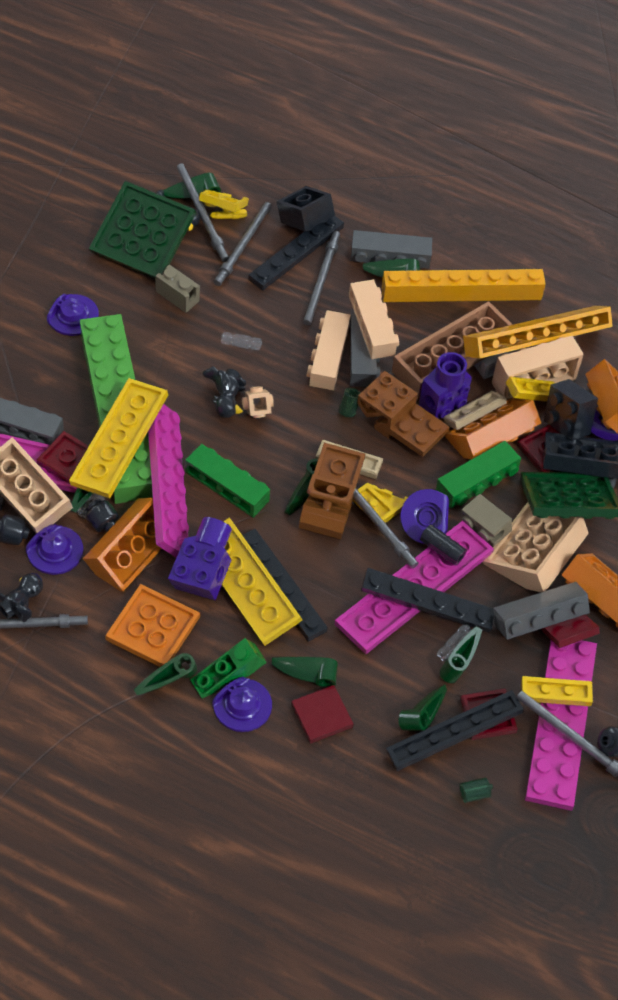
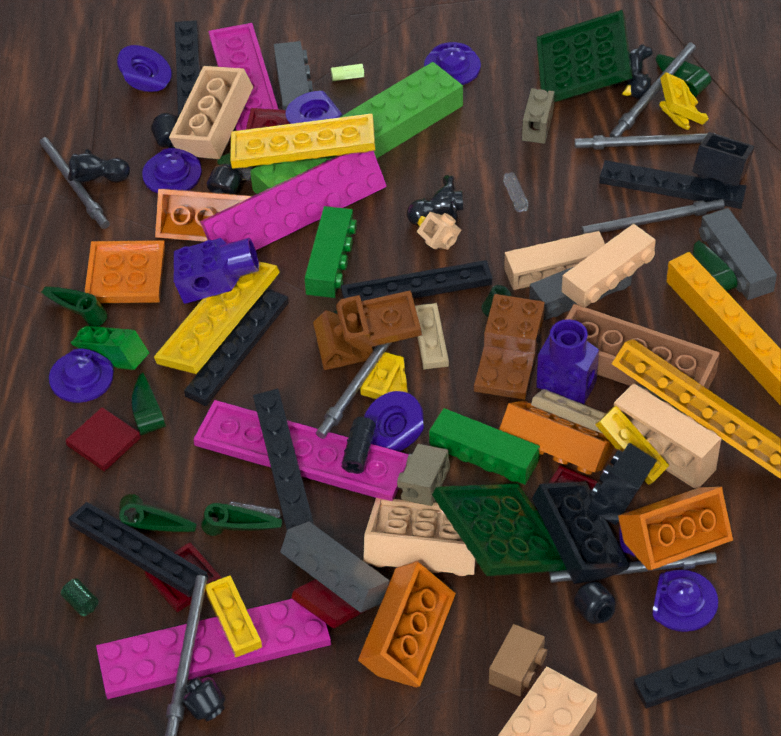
camera: 70 degrees right, 5 degrees down
(31, 382) = (347, 72): none -> yellowish green piece
(78, 419) = (312, 107): none -> dark purple hat
(296, 444) = (424, 282): none -> black plate

